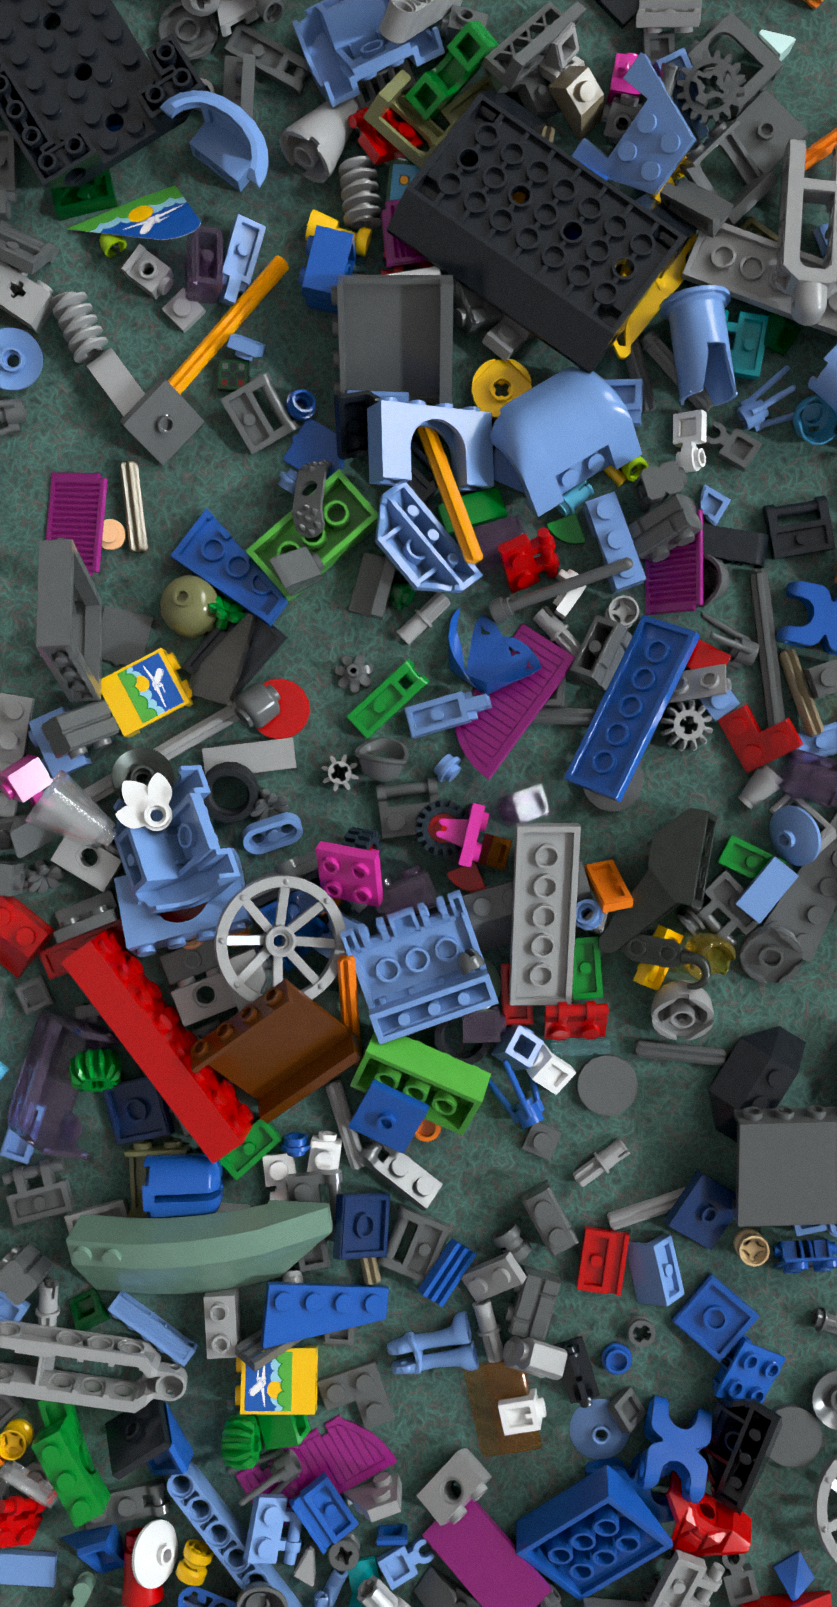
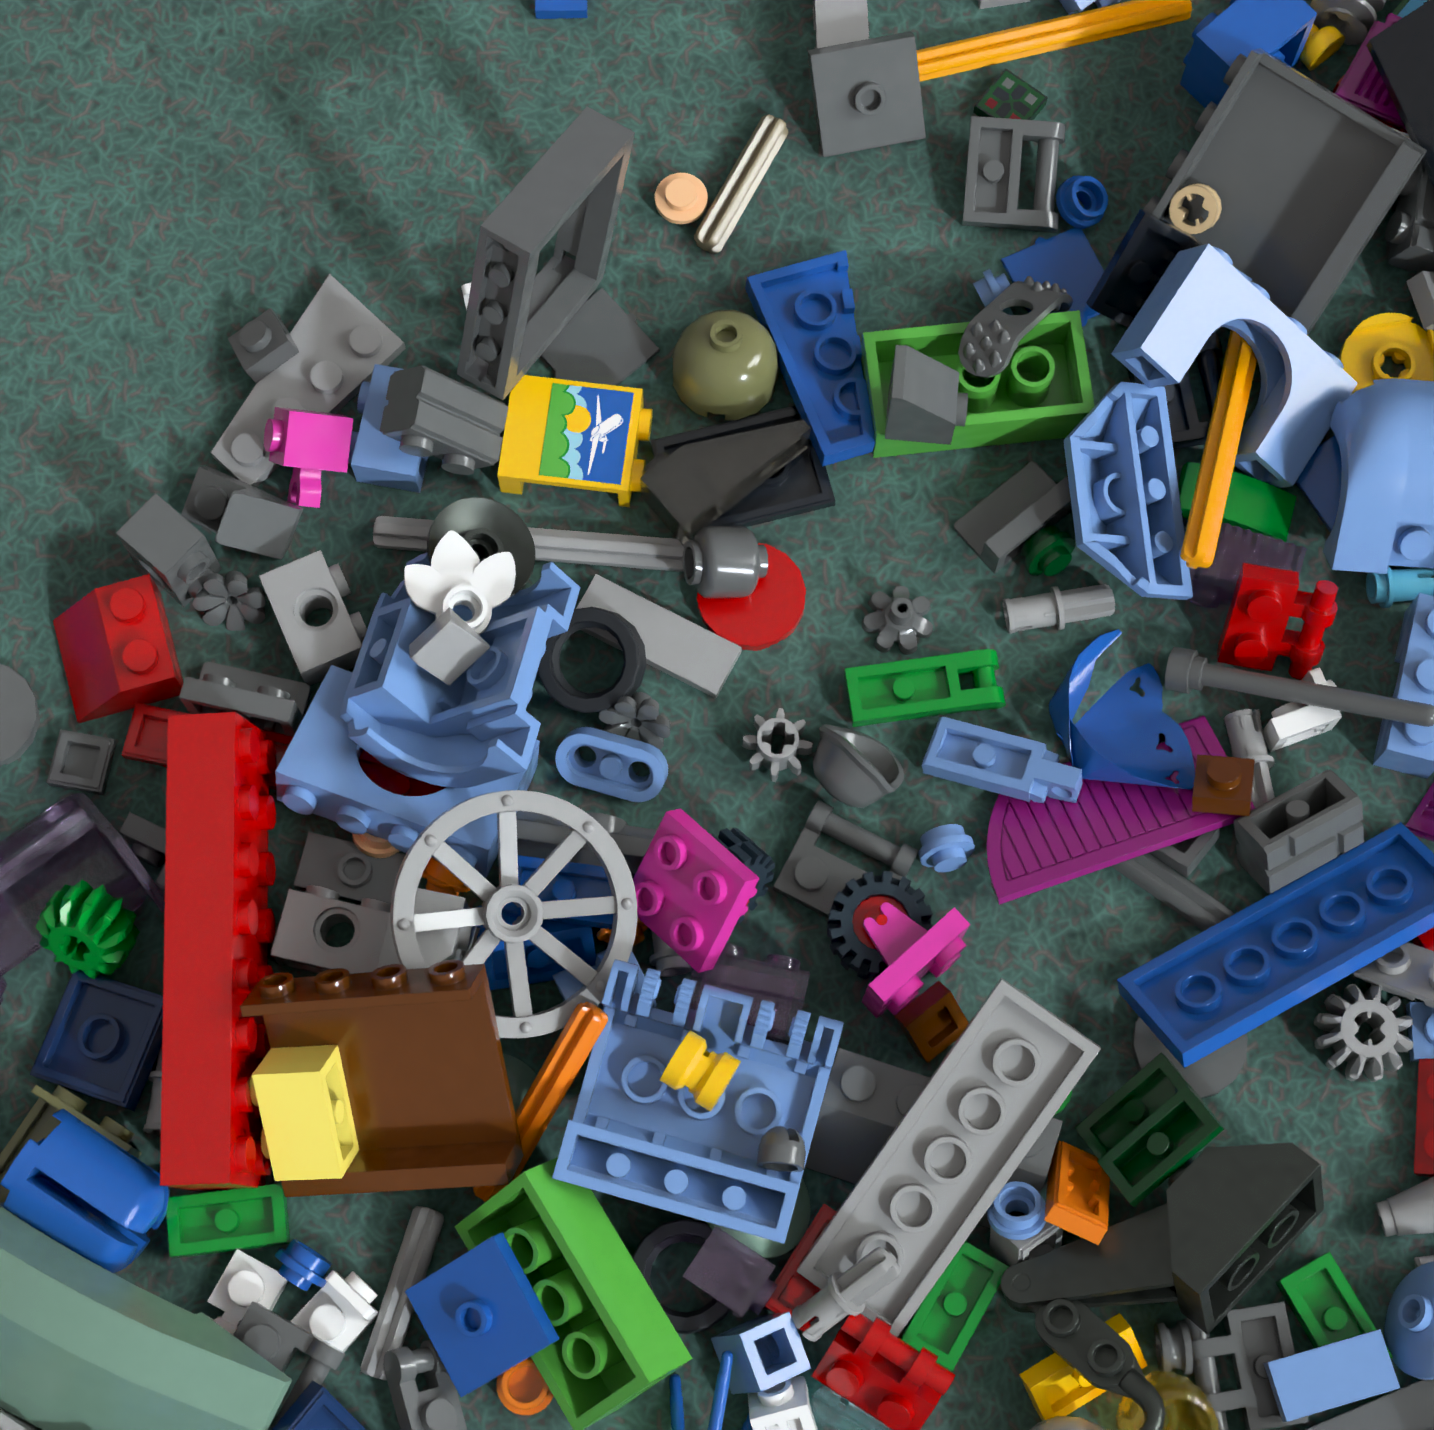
camera: 35 degrees right, 15 degrees down
(72, 813) = (341, 523): clear cone -> none
(78, 513) = (671, 133): magenta window -> none
(162, 839) = (447, 647): none -> light grey slope
(226, 612) = (771, 402): green plant -> none
(246, 347) = (1055, 76): medium blue plate -> none
(251, 1086) = (304, 1113): none -> light yellow brick
(365, 368) = (1211, 203): none -> tan bush
(411, 953) = (700, 1071): none -> yellow wheel
(467, 877) = (863, 1031): red tile -> none
(524, 805) = (1033, 974): bracket -> none
(538, 1002) = (846, 1293): none -> light grey axle
(554, 656) = (1223, 785): none -> reddish brown plate
(567, 530) = (1363, 625): green tile -> none
(621, 838) = (1148, 1129): none -> dark green slope
(625, 609) = (1378, 787): light grey wheel -> none

